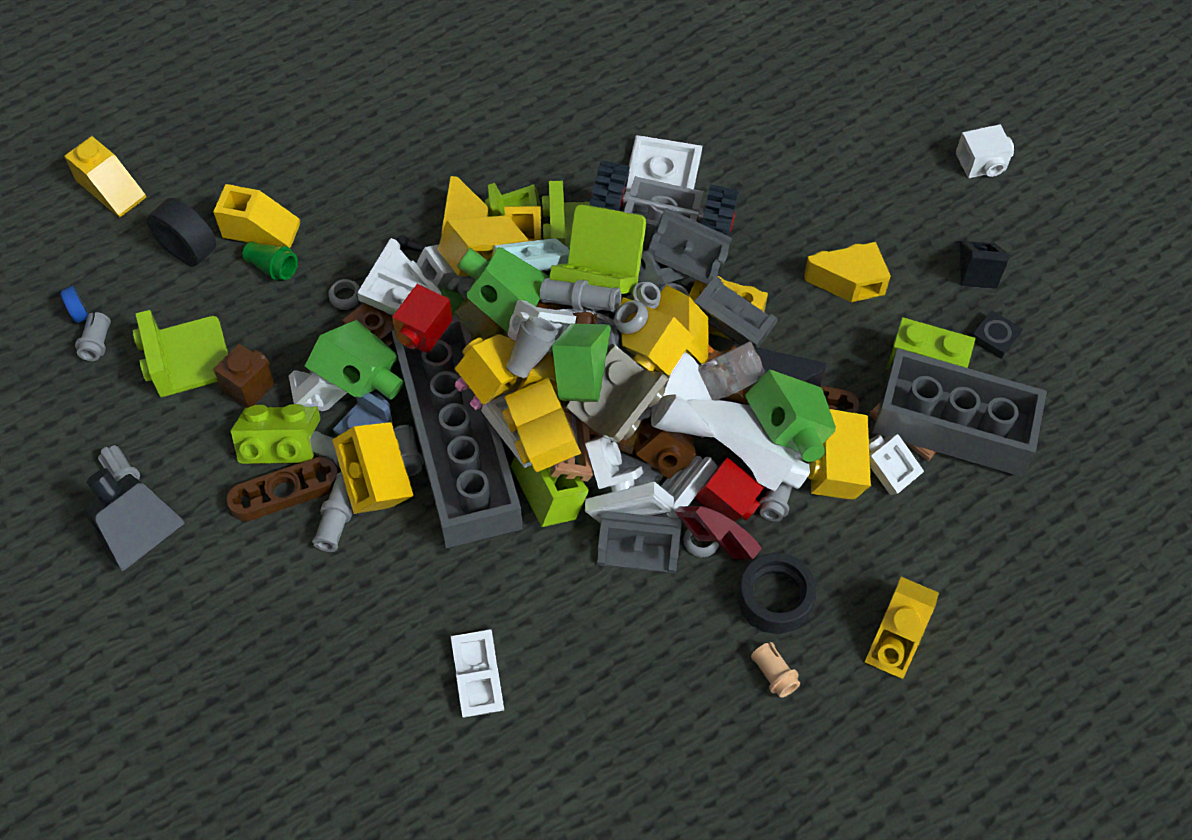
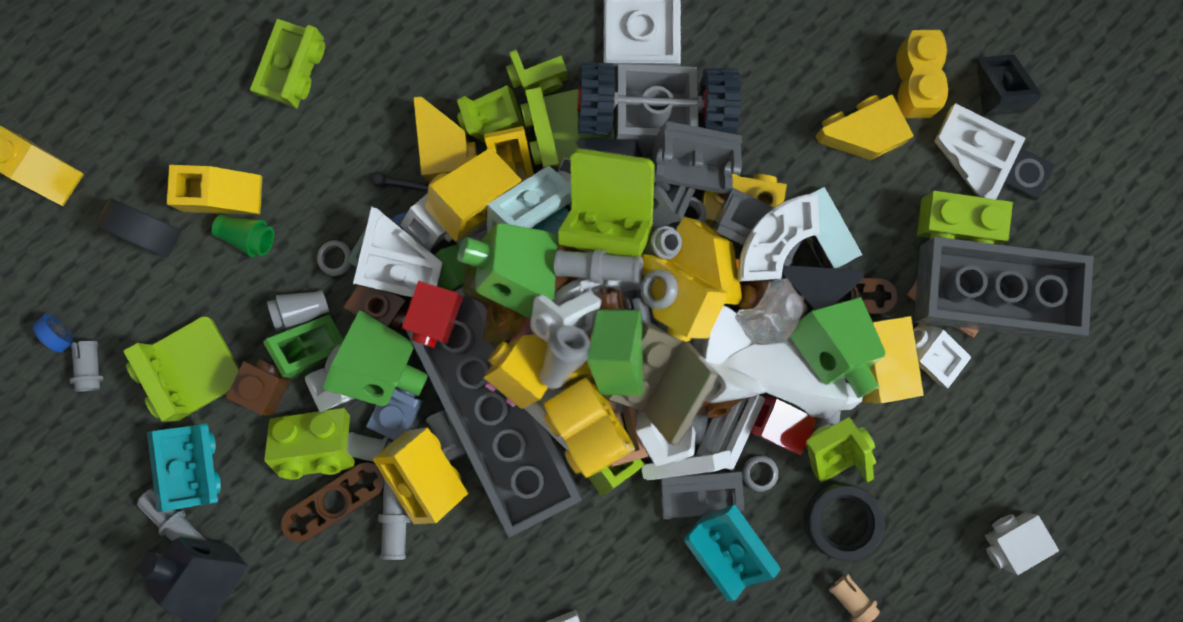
camera: 10 degrees left, 25 degrees up
(153, 430) = (183, 467): none -> teal bracket
(288, 349) = (304, 346): none -> bright green slope
(298, 324) = (296, 309): none -> light grey cone
(349, 143) = (288, 63): none -> lime bracket
(574, 181) = (546, 75): none -> lime bracket
(658, 594) = (730, 551): none -> teal bracket
(714, 526) = (779, 476): dark red slope -> none
(749, 312) = (775, 237): none -> white tile
(782, 517) = (839, 448): none -> lime bracket
(796, 336) = (835, 243): none -> light aqua panel
(902, 627) = (971, 533): yellow slope -> none
(906, 236) = (920, 68): none -> yellow brick
(952, 302) = (978, 149): none -> white wing
(952, 643) = (1019, 542): none -> white brick

